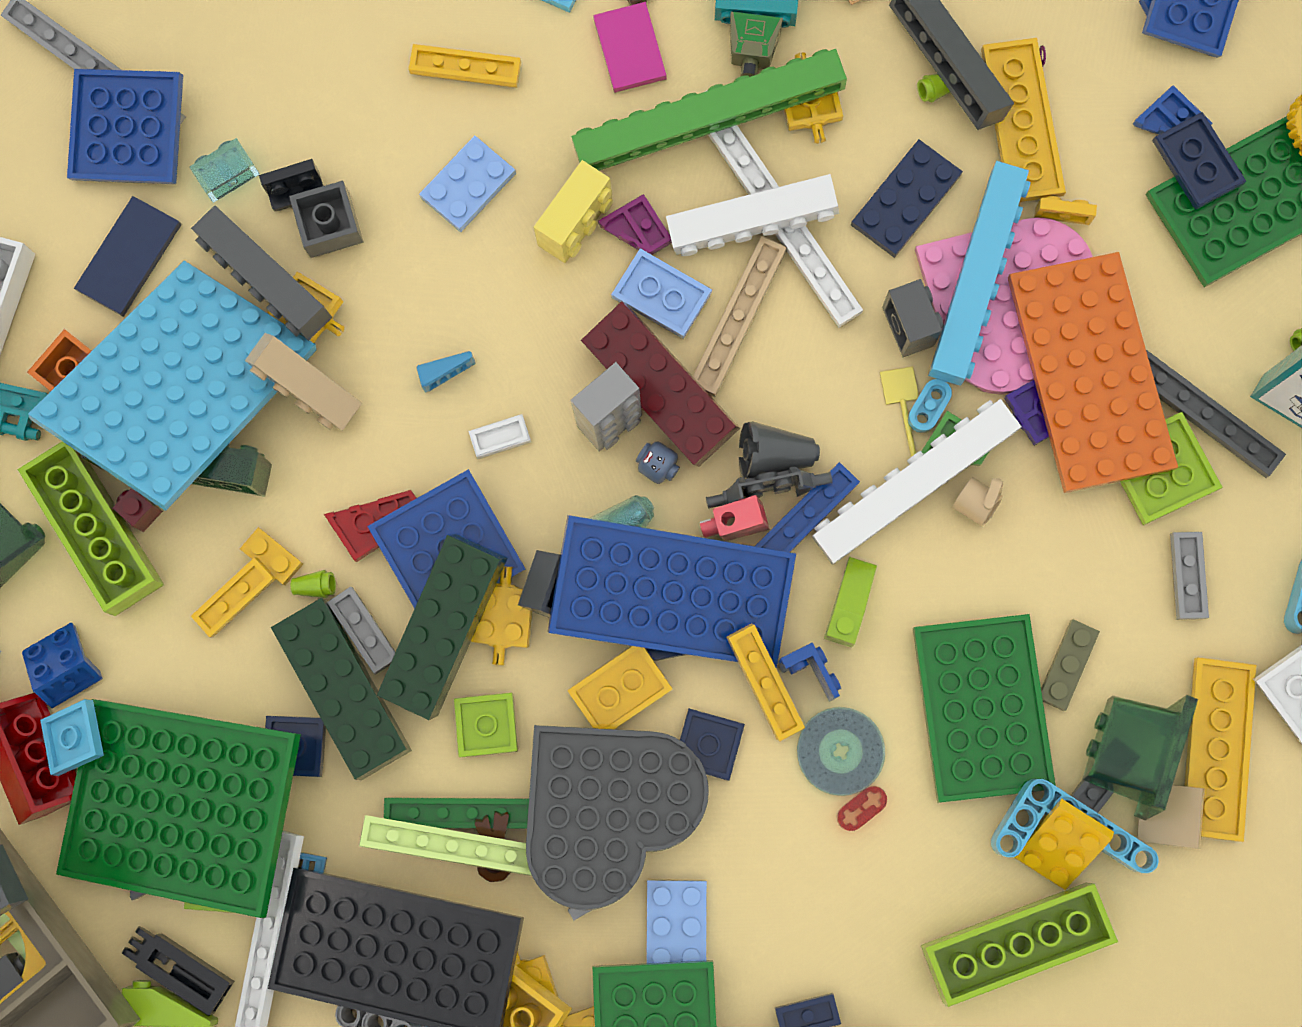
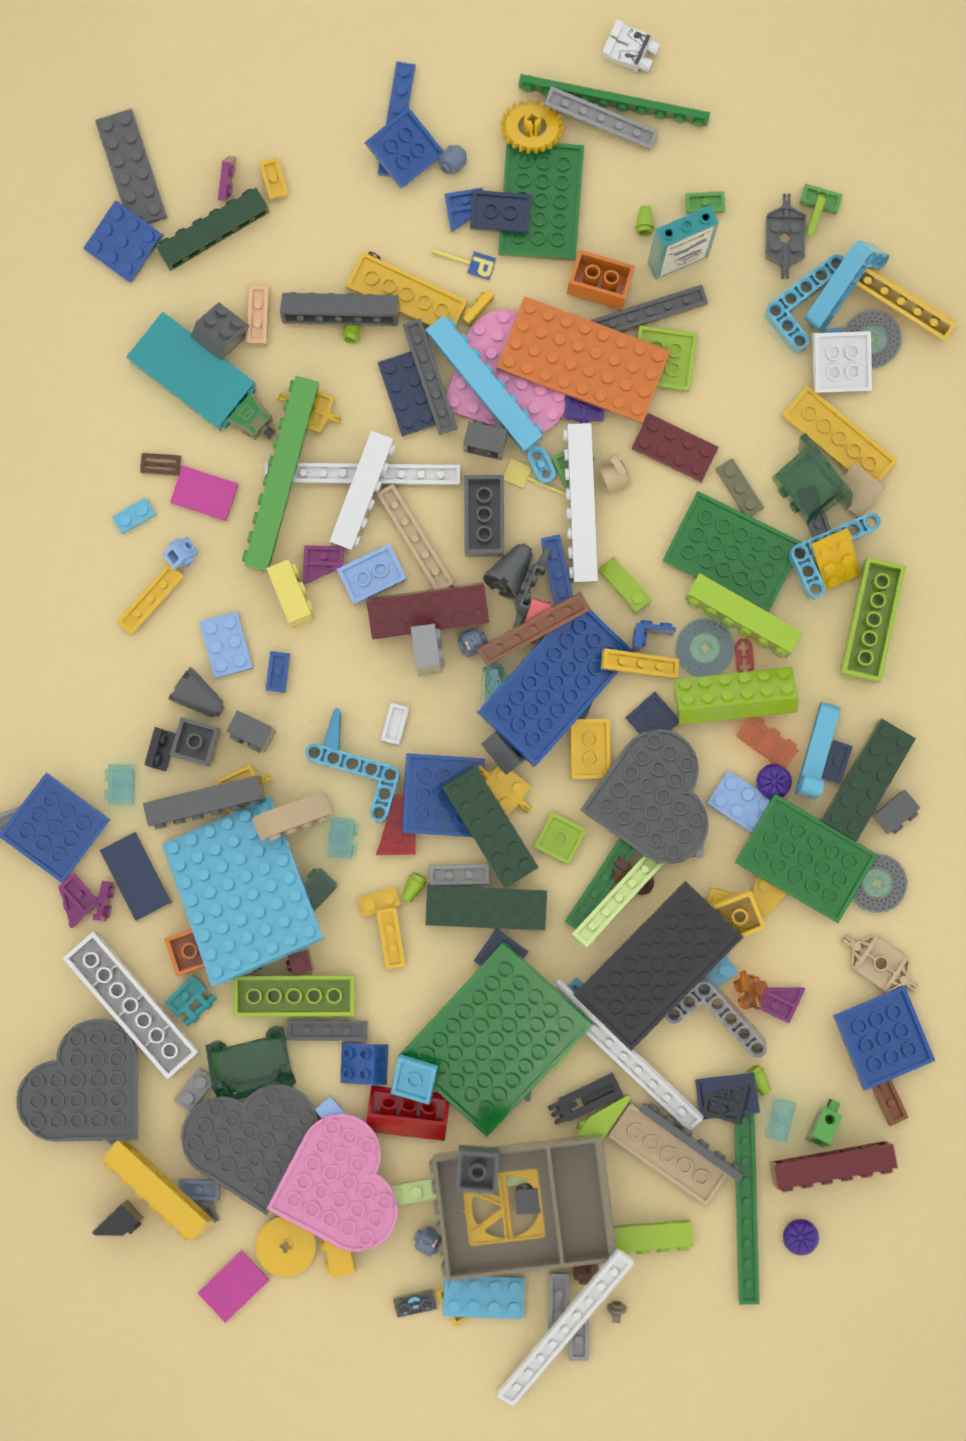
camera: 60 degrees left, 5 degrees up
(59, 207) = (77, 899): none -> magenta wing
(71, 237) = (104, 910): none -> magenta wing
(74, 594) = (326, 1030): none -> dark grey plate
(319, 461) = (341, 838): none -> clear light blue brick
(378, 272) = (250, 730): none -> dark grey brick
(384, 184) = (196, 694): none -> dark grey cone
(416, 432) = (363, 762): none -> medium azure beam
(473, 261) = (278, 672): none -> blue plate
(540, 61) = (180, 553): none -> light blue brick
(721, 521) = (533, 628): none -> dark orange plate
(730, 949) = (773, 780): none -> dark purple piece
(774, 909) = (767, 741): none -> clear orange brick
(803, 982) = (810, 782): none -> medium azure beam
(806, 830) = (735, 695): none -> lime brick
(820, 376) = (484, 515): none -> dark grey brick
(911, 772) = (743, 615): none -> lime brick
(943, 207) = (430, 377): none -> dark grey plate
(1062, 553) = (674, 448): none -> dark red plate
(1118, 182) = (480, 264): none -> piece
(1189, 575) = (734, 386): light grey plate -> none
(1204, 328) = (600, 279): none -> orange brick
(1220, 69) = (452, 159): none -> sand blue head

